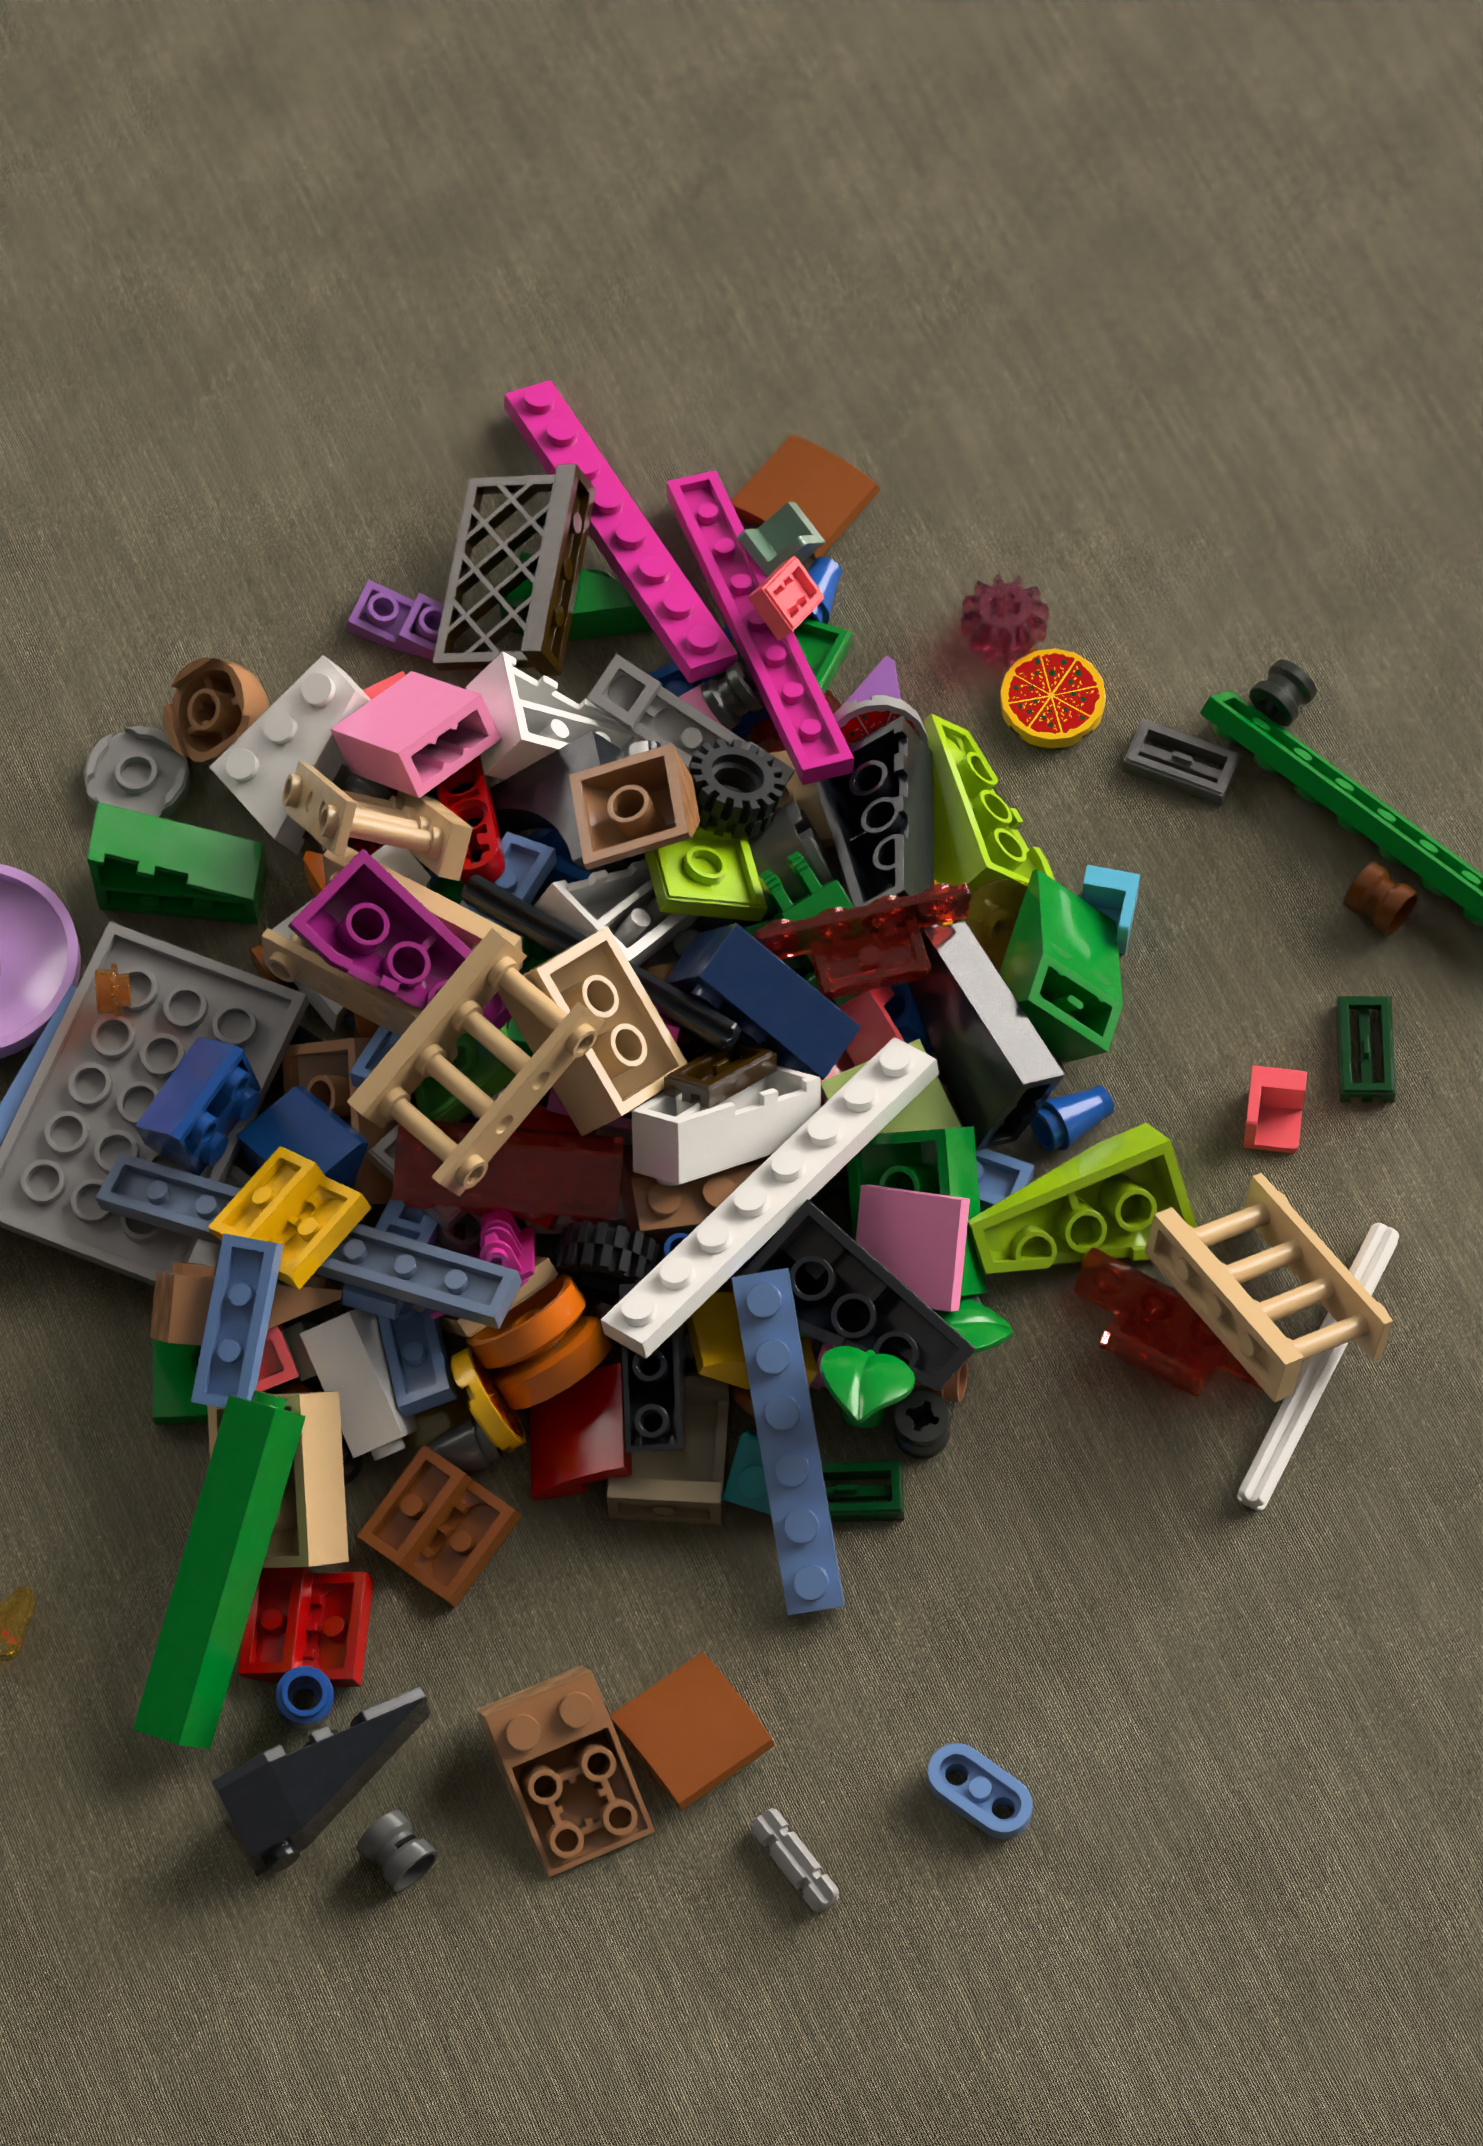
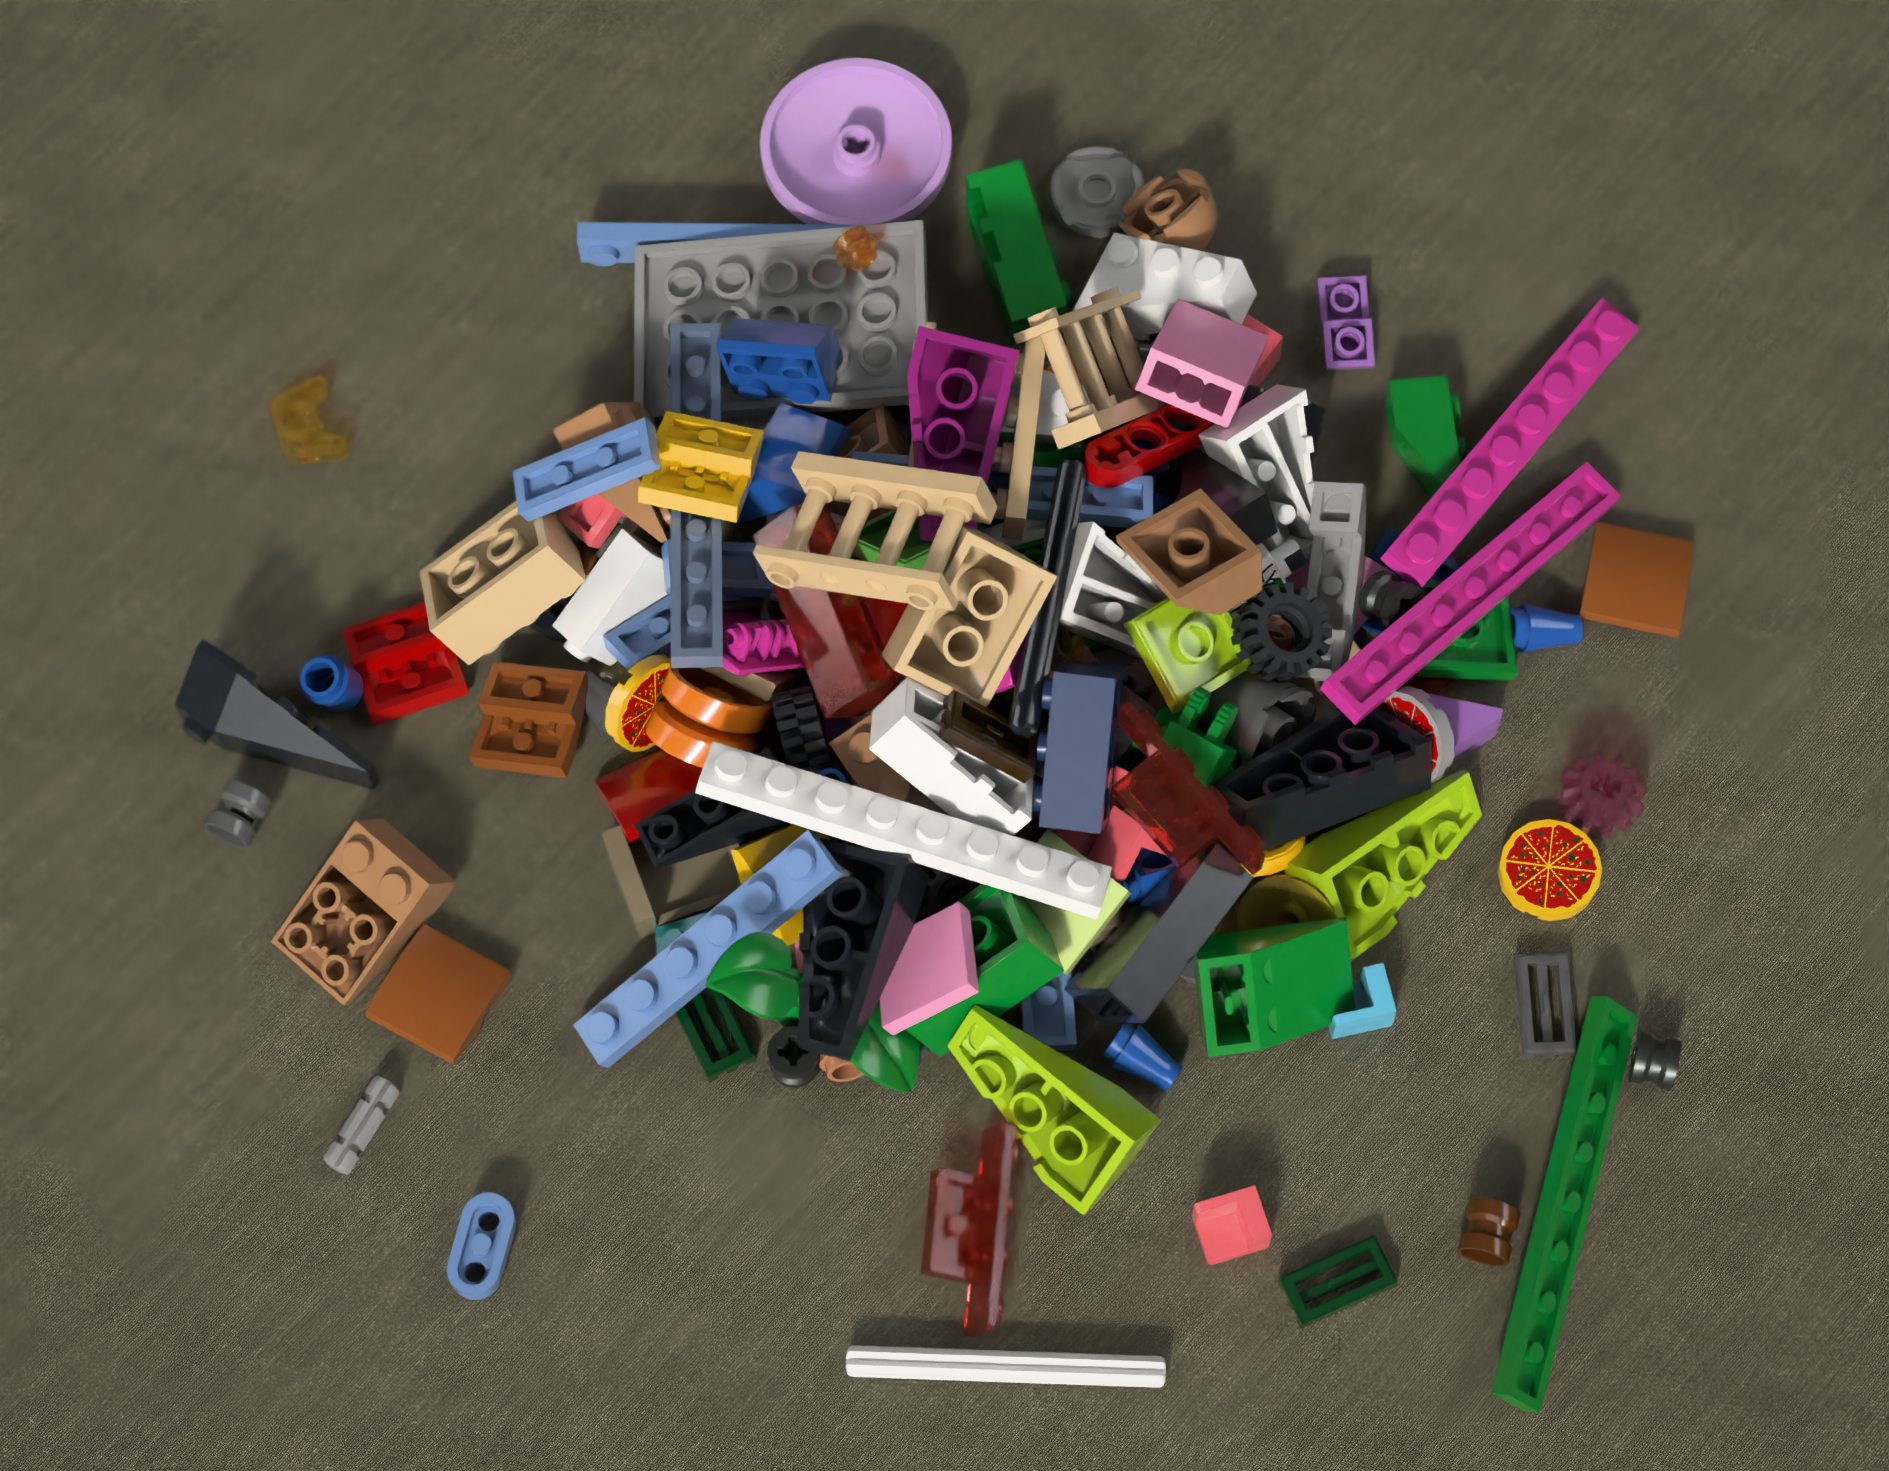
camera: 65 degrees right, 5 degrees up
(219, 1570) = (391, 564): green brick -> none
(555, 564) = (1430, 403): dark brown fence -> none
(781, 537) = (1569, 575): sand green panel -> none
(786, 597) = (1497, 596): coral plate -> none
(1245, 1323) = (991, 1279): tan fence -> none

